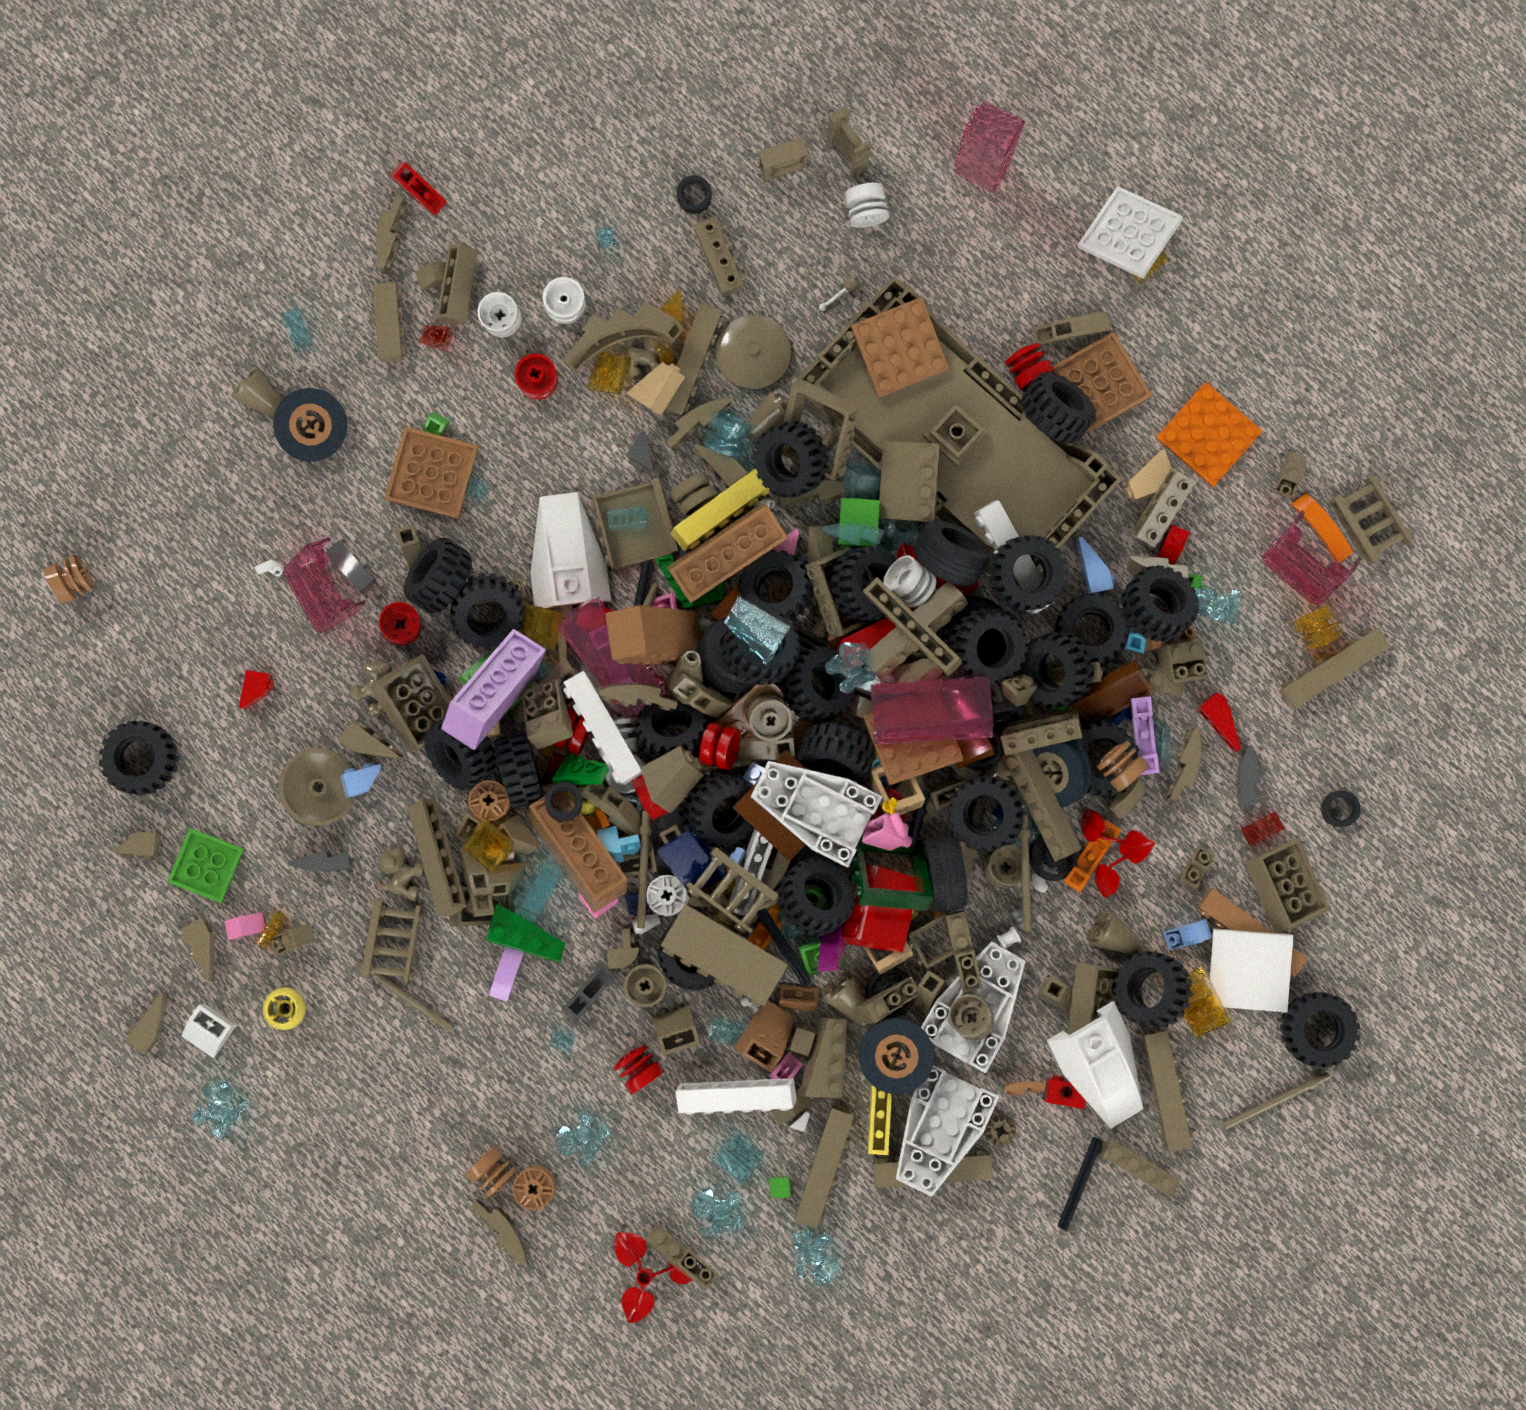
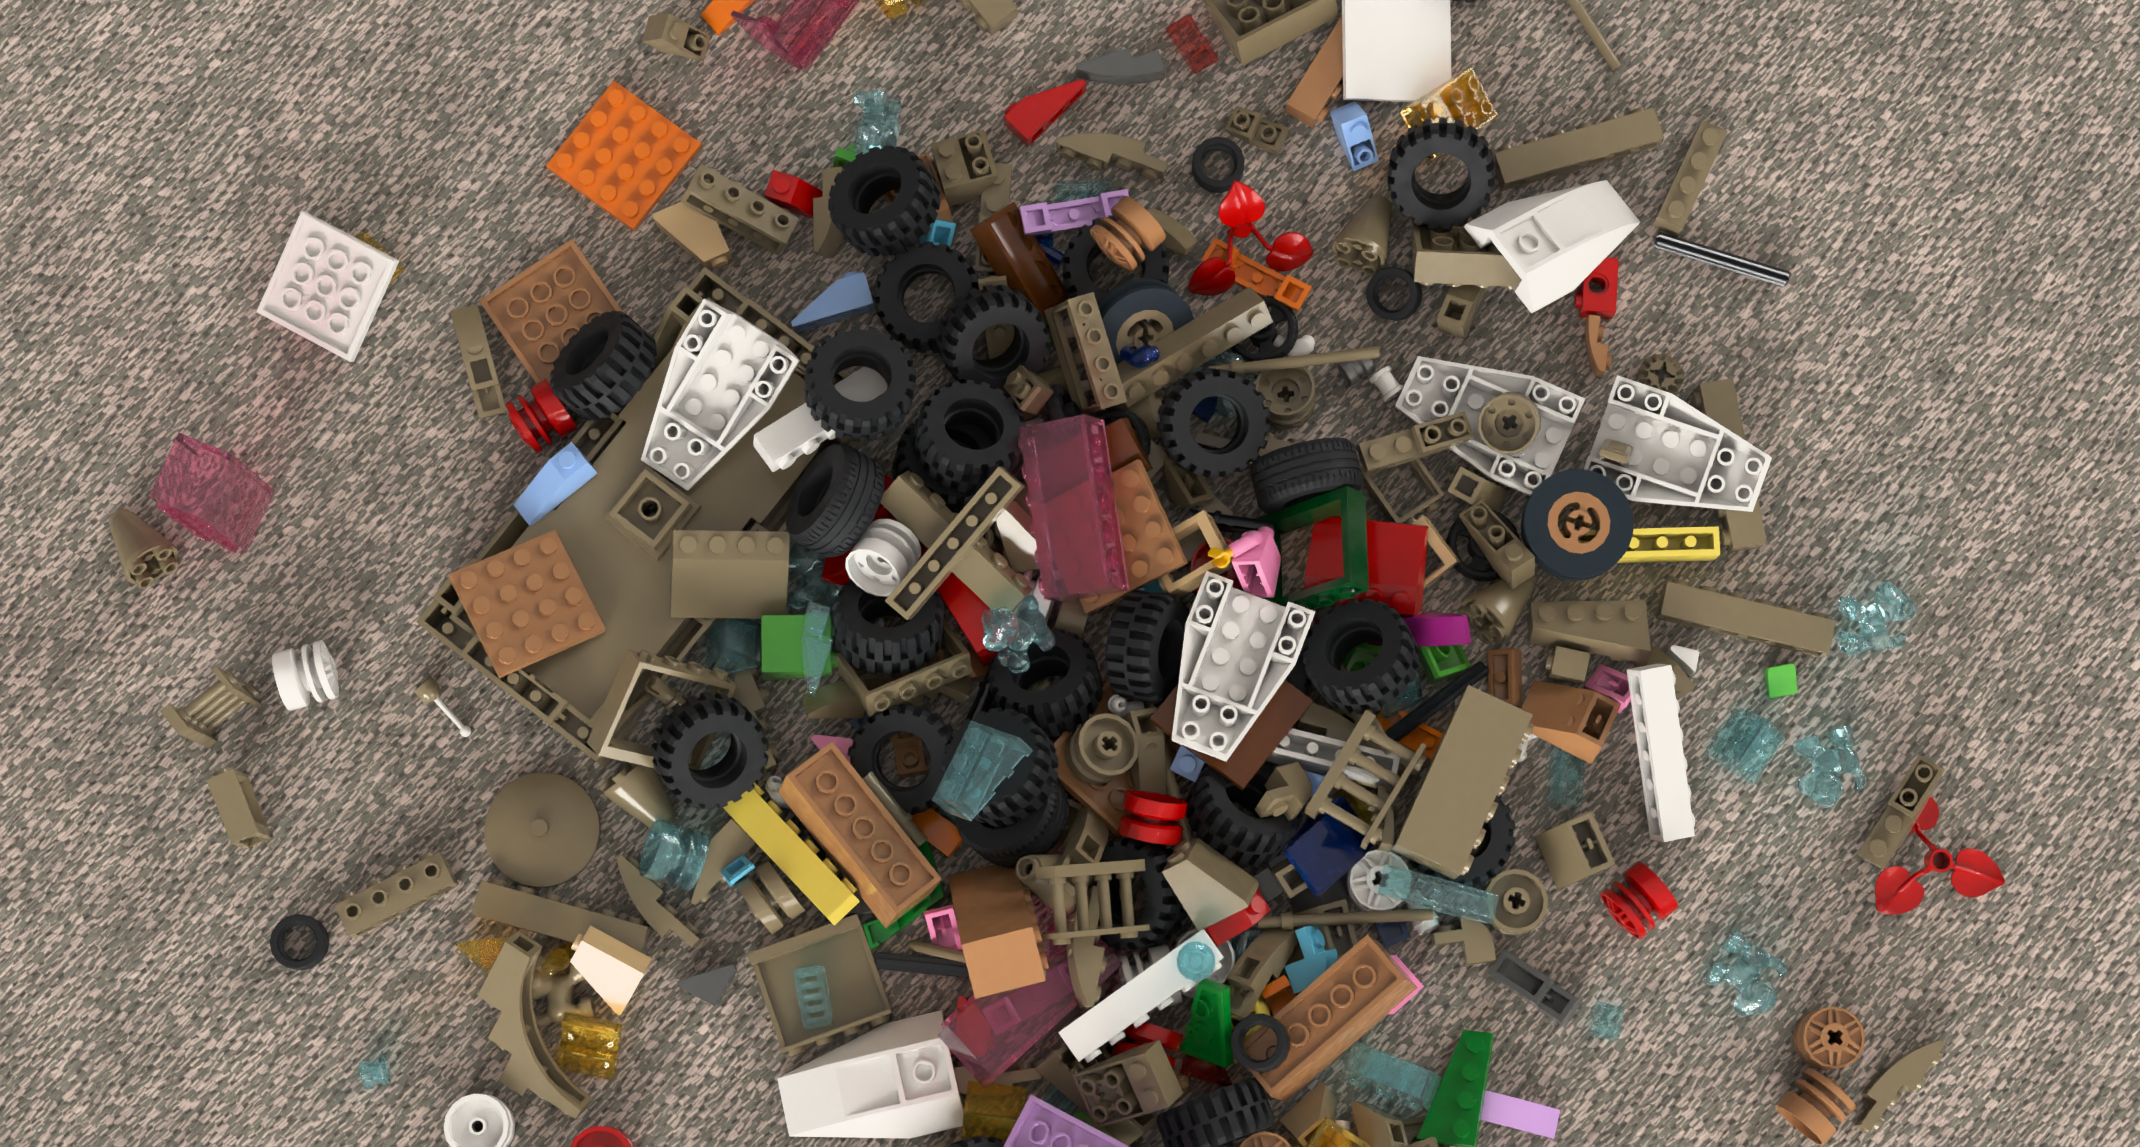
camera: 90 degrees left, 5 degrees down
(619, 762) = (1195, 961): none -> clear light blue wheel
(653, 933) = (1438, 894): none -> clear light blue slope
(682, 690) = (1079, 876): none -> dark tan fence
(713, 474) = (737, 870): none -> medium azure slope
(728, 838) = (1287, 792): none -> dark tan brick
(740, 576) = (895, 810): none -> dark tan pin
(798, 734) = (1121, 707): none -> white arm
(945, 1089) = (1615, 452): none -> dark tan slope
(959, 104) = (141, 549): none -> dark tan cone
(981, 371) = (554, 483): none -> light blue slope
(1033, 479) = (714, 392): none -> white wedge
(1036, 768) = (1140, 357): none -> clear blue arm
(1071, 935) = (1373, 291): none -> black tyre
(1187, 834) = (1205, 147): none -> black tyre

